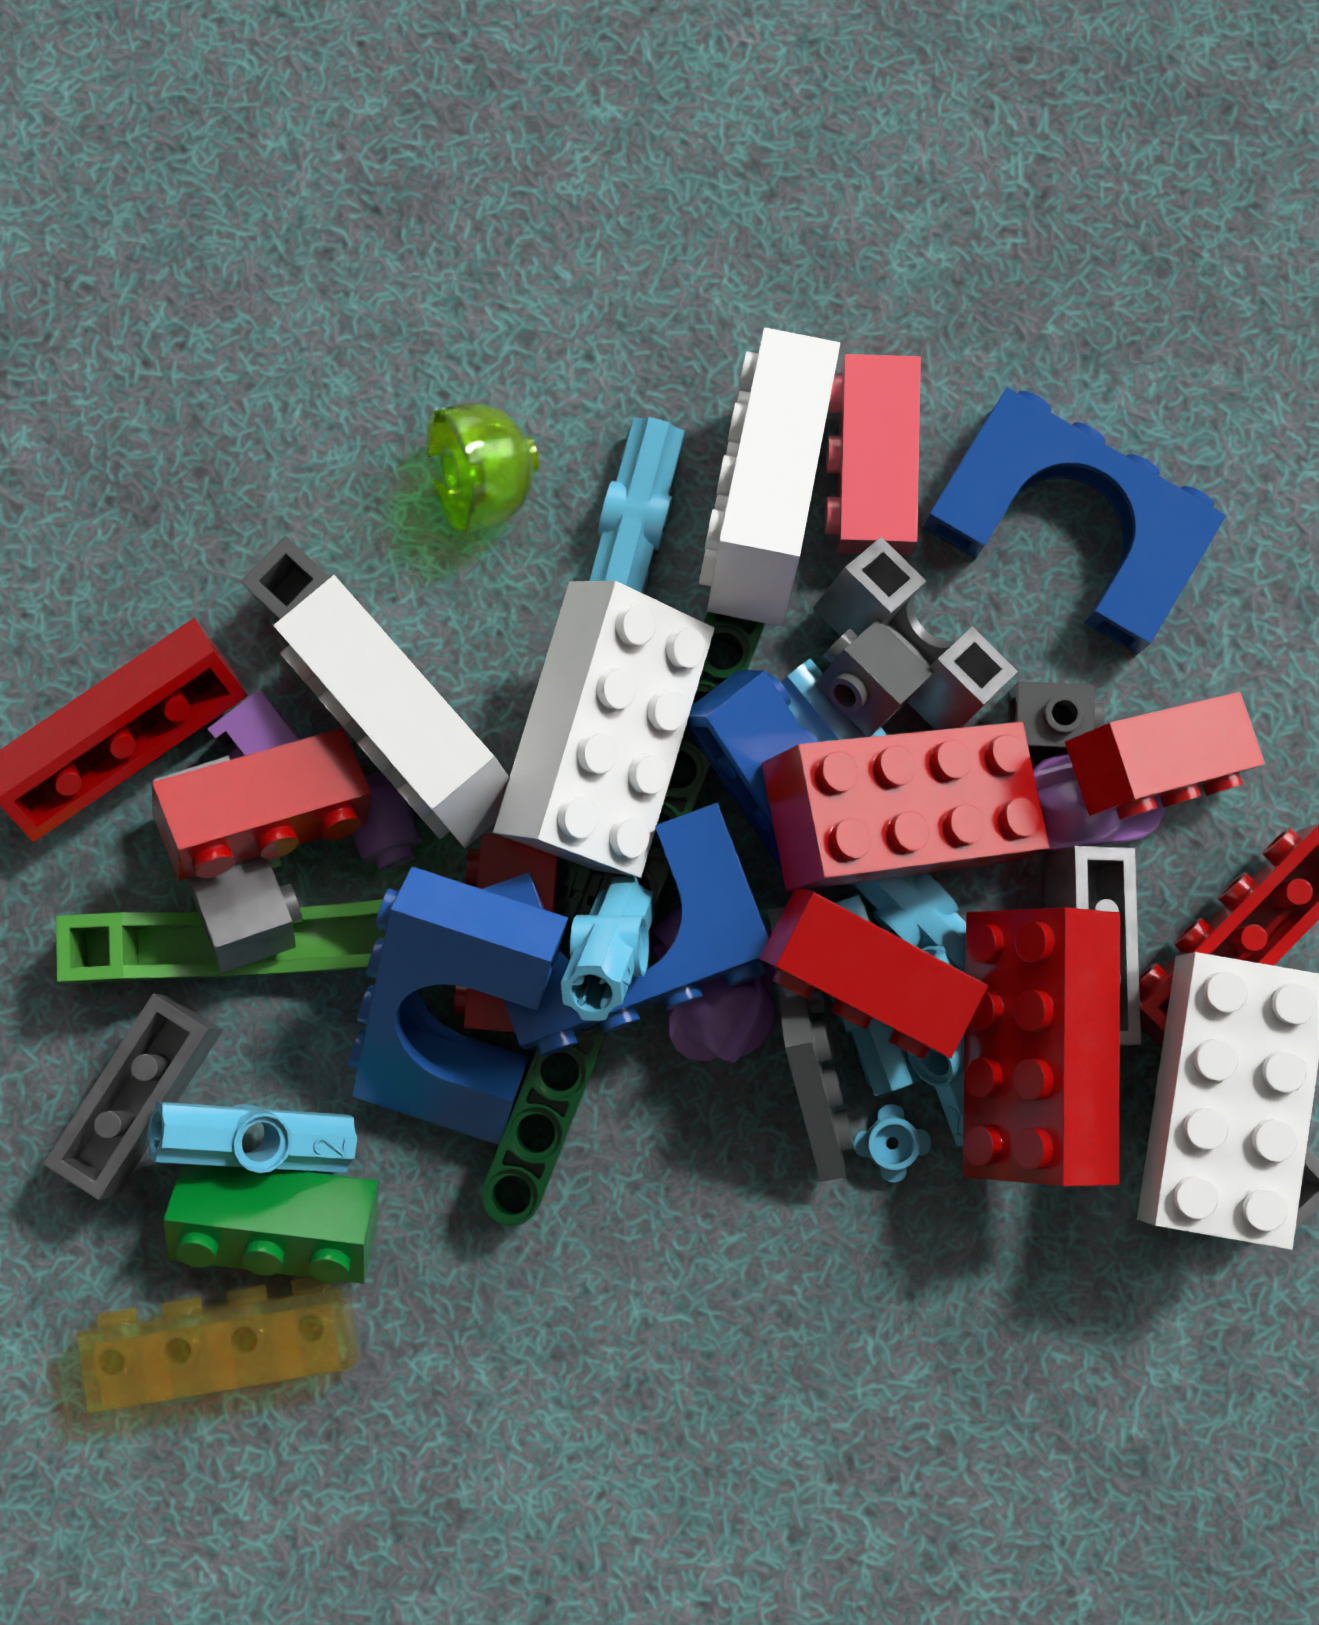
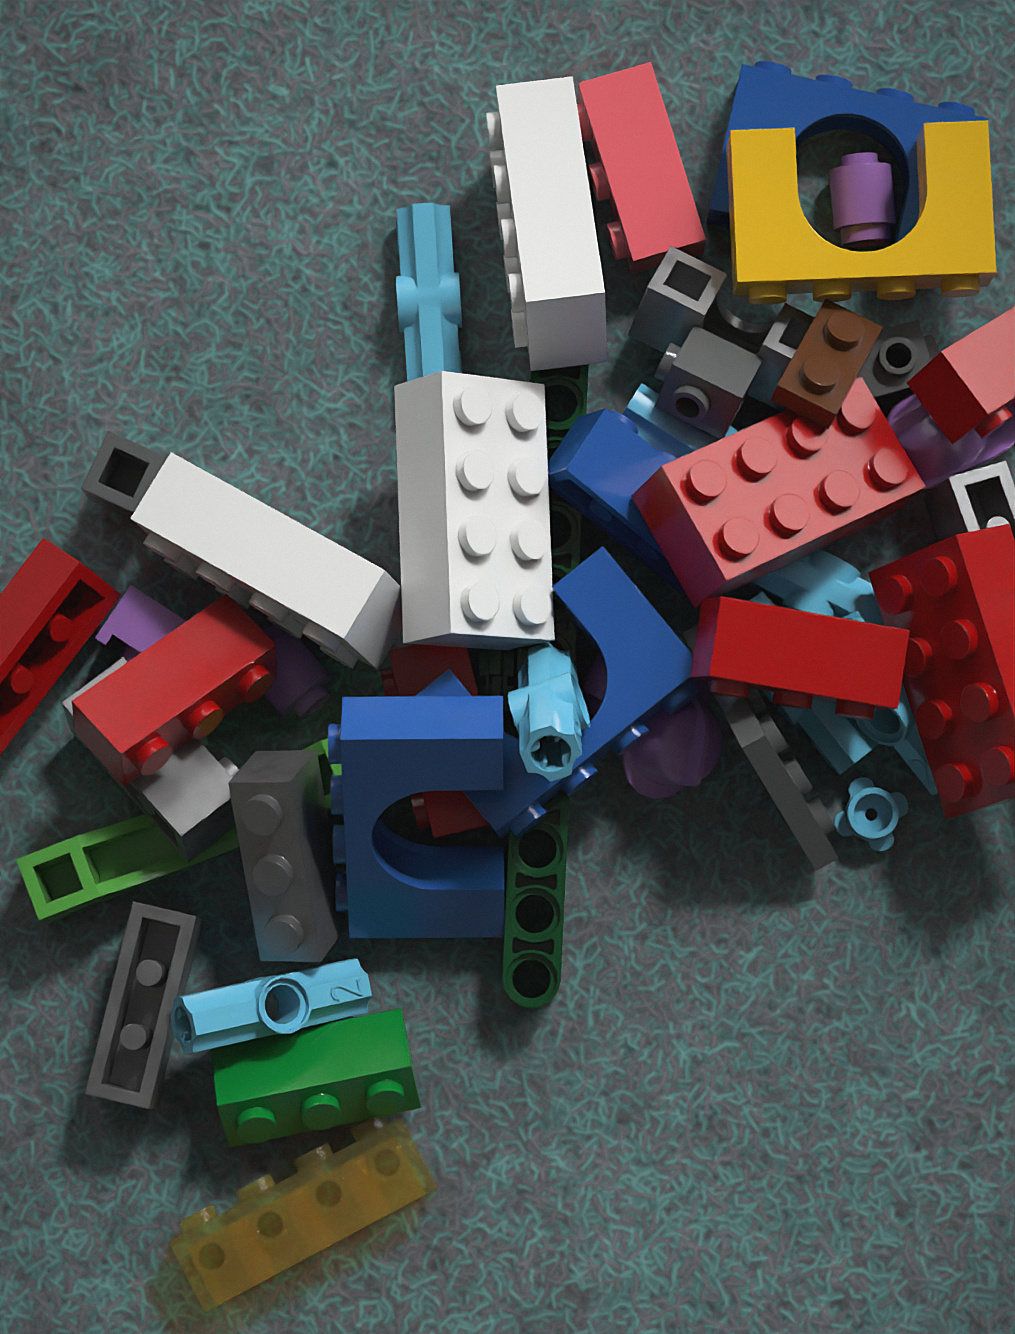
camera: 15 degrees left, 0 degrees up
(315, 998) = (287, 855): none -> flat silver brick
(483, 463) = (268, 300): clear neon green cylinder -> none
(986, 580) = (782, 254): none -> yellow arch
(992, 698) = (826, 363): none -> reddish brown plate
(1078, 554) = (862, 200): none -> medium lavender brick

